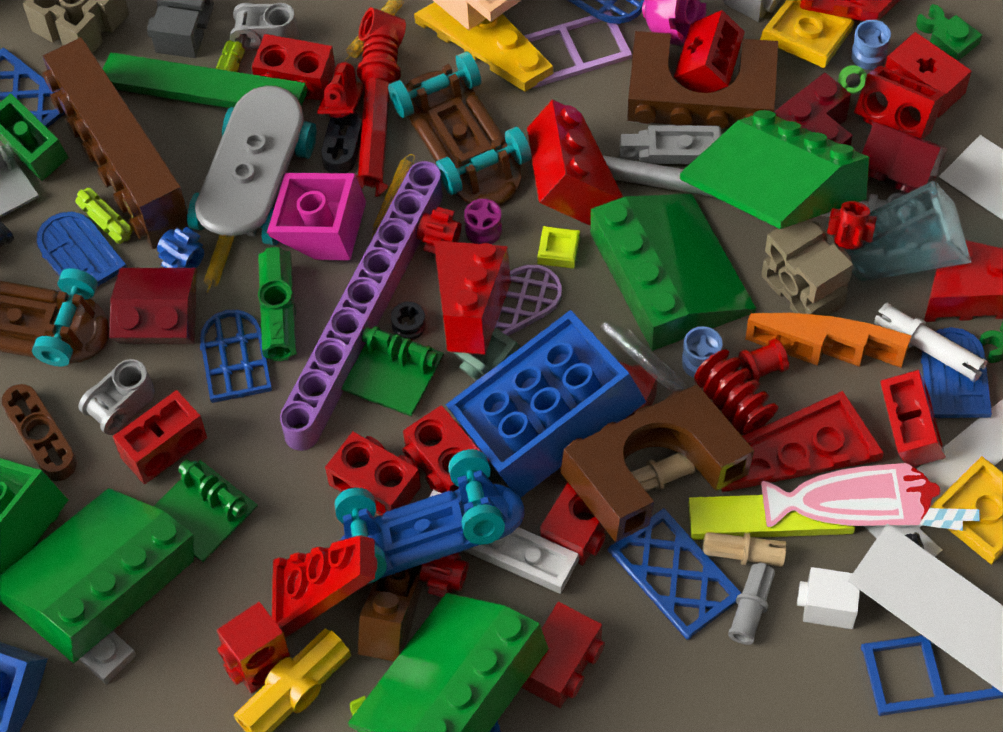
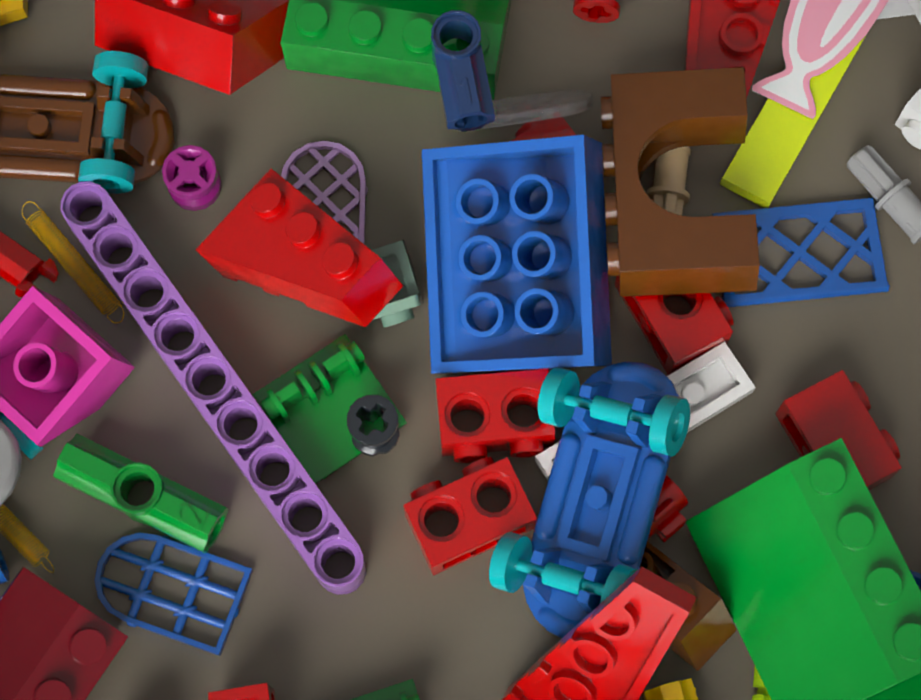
camera: 60 degrees left, 15 degrees up
(392, 391) = (370, 408): none -> black bush
(412, 310) = (283, 339): black bush -> none
(438, 227) = (172, 235): red gear -> none
(558, 247) = (284, 114): neon yellow tile -> none
(631, 300) = (462, 73): none -> dark blue piece
(699, 346) = (545, 34): medium blue wheel -> none
(732, 393) = (629, 42): red piece -> none
(745, 548) = (823, 159): tan axle -> none

